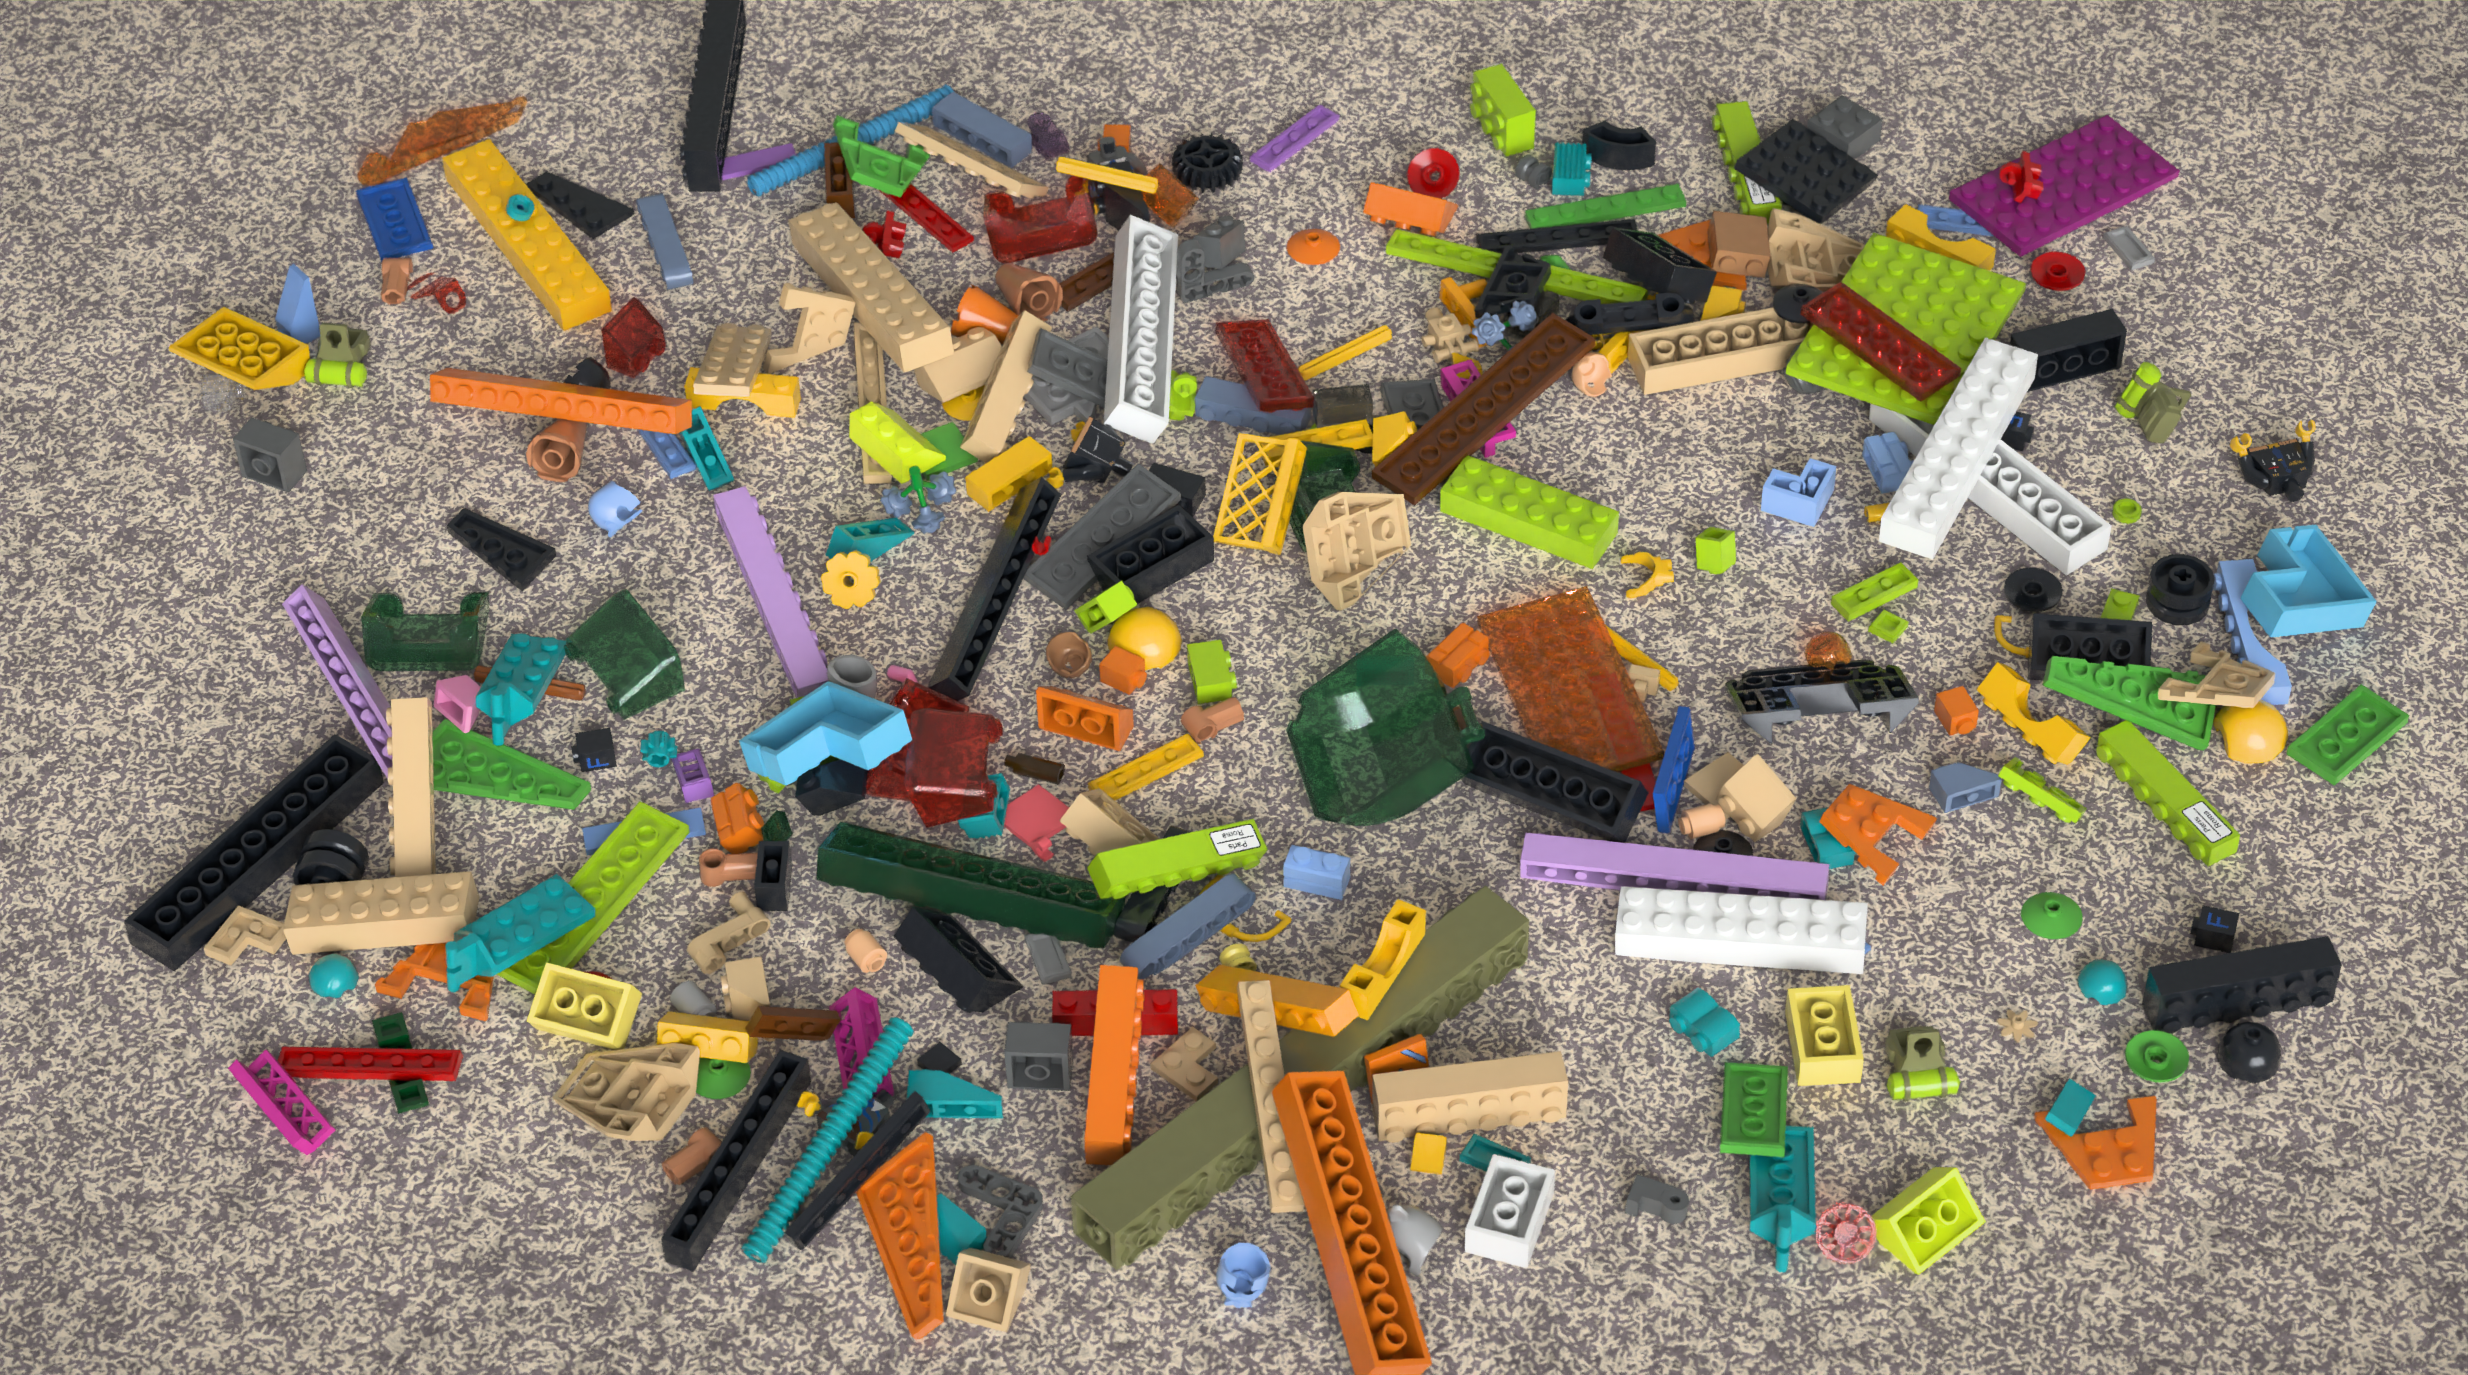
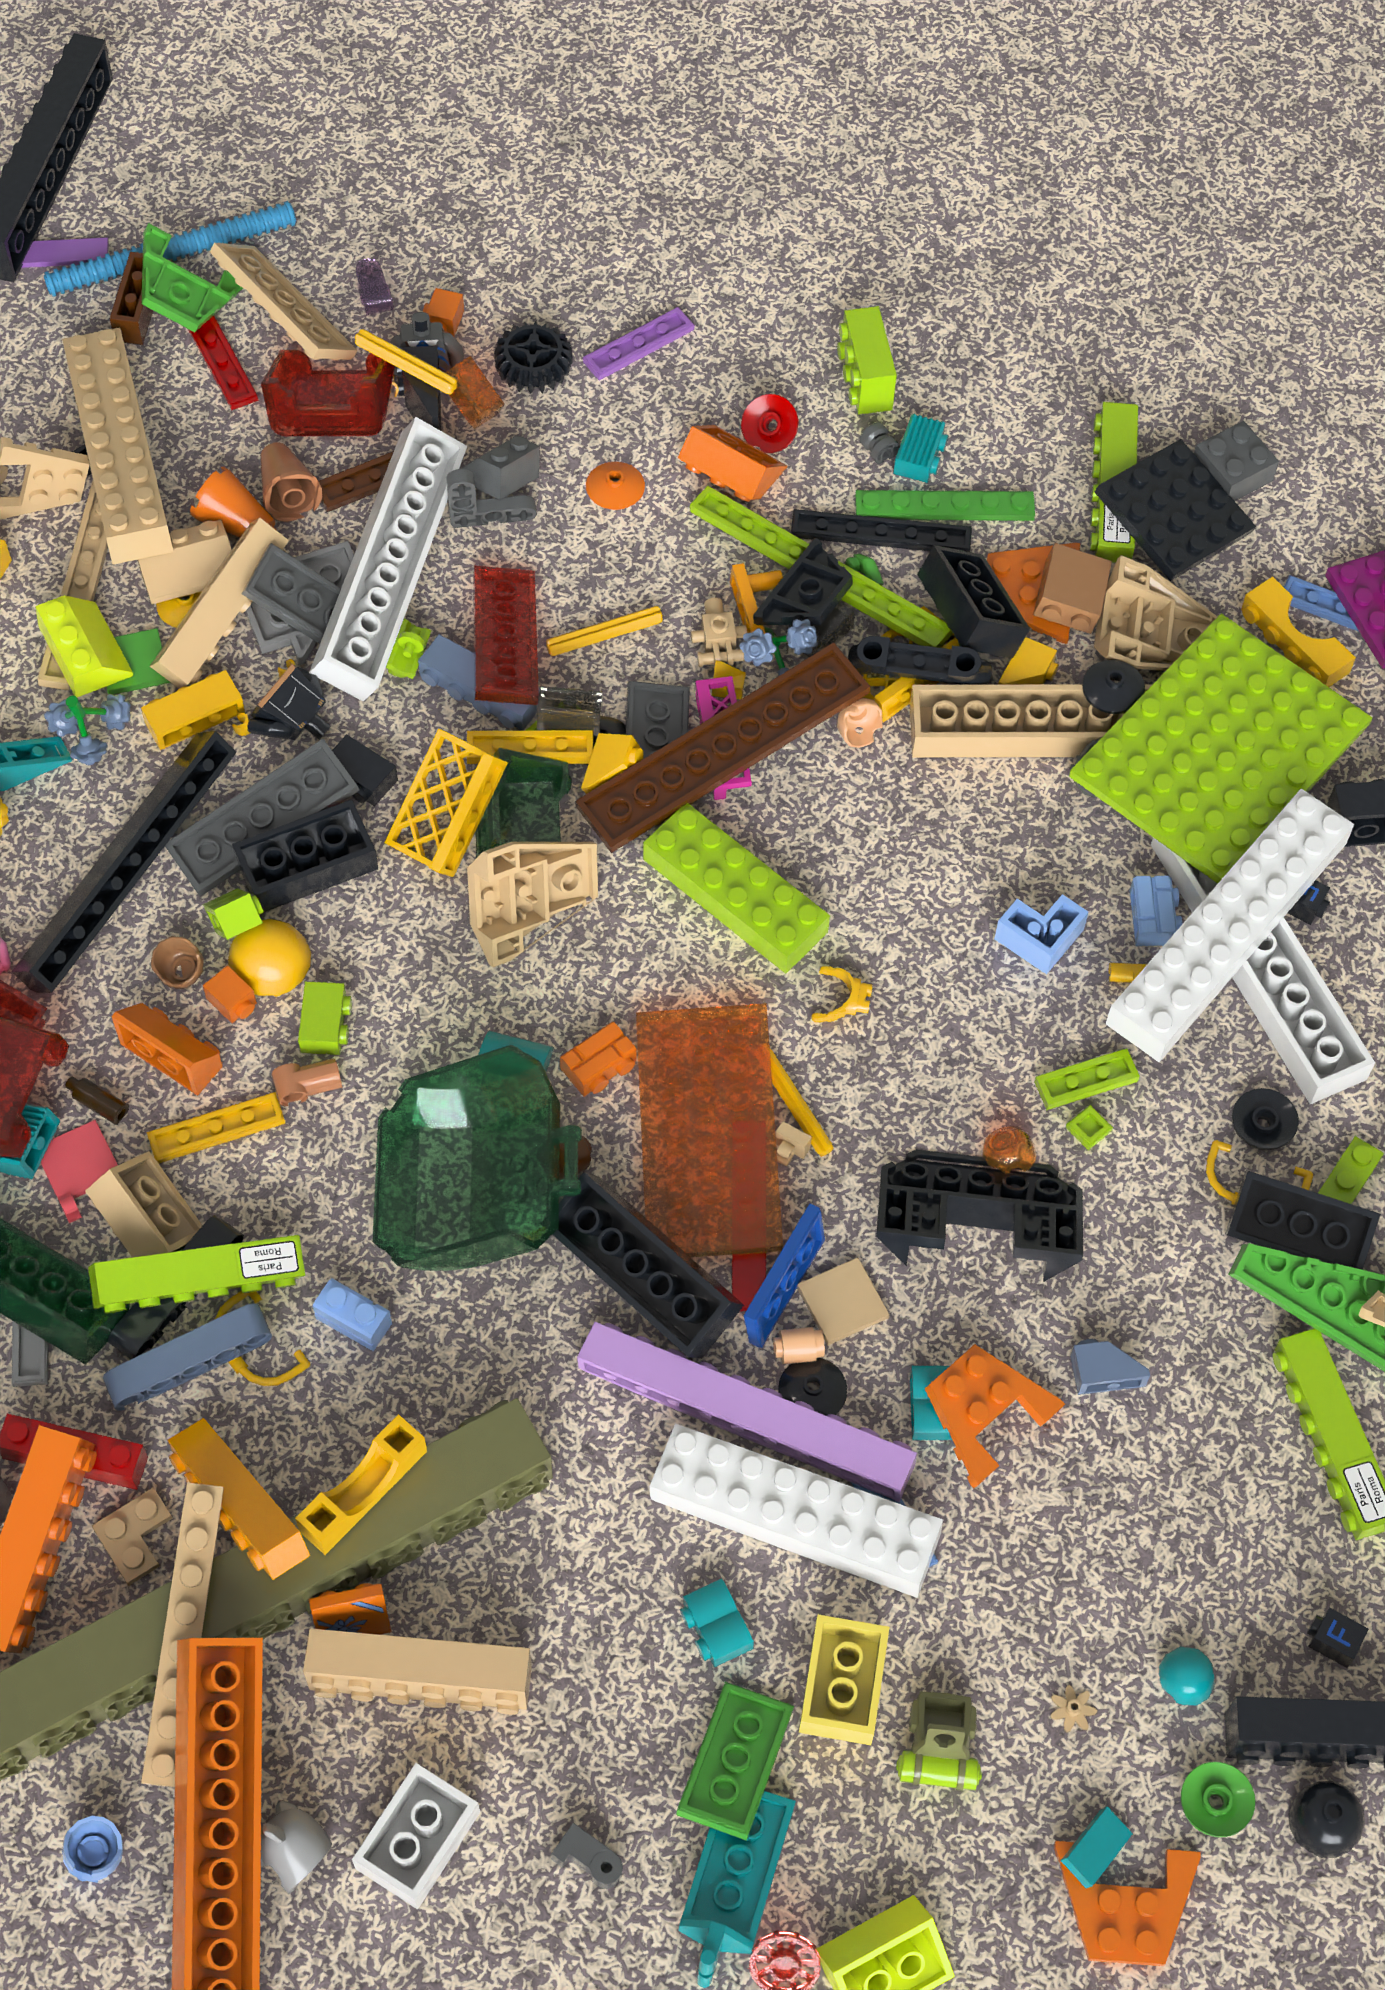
camera: 10 degrees right, 15 degrees up
(887, 235) = (154, 373): red hips -> none
(982, 129) = (309, 264): sand blue brick -> none
(1041, 548) = (190, 817): red hand -> none
(1238, 957) = (229, 1413): light yellow wheel -> none
(1428, 1153) = (356, 1726): yellow slope -> none
(1480, 1151) = (428, 1747): teal tile -> none
(1619, 147) = (980, 433): black brick -> none
(1715, 550) = (924, 987): lime brick -> none
(1756, 799) = (862, 1340): tan slope -> none
(1881, 341) = (1183, 766): clear red plate -> none
(1956, 711) = (1129, 1264): orange brick -> none
(2008, 693) = (1193, 1256): yellow arch -> none
(2033, 784) = (1185, 1389): lime wing -> none
(2048, 923) = (1155, 1581): bright green dish -> none

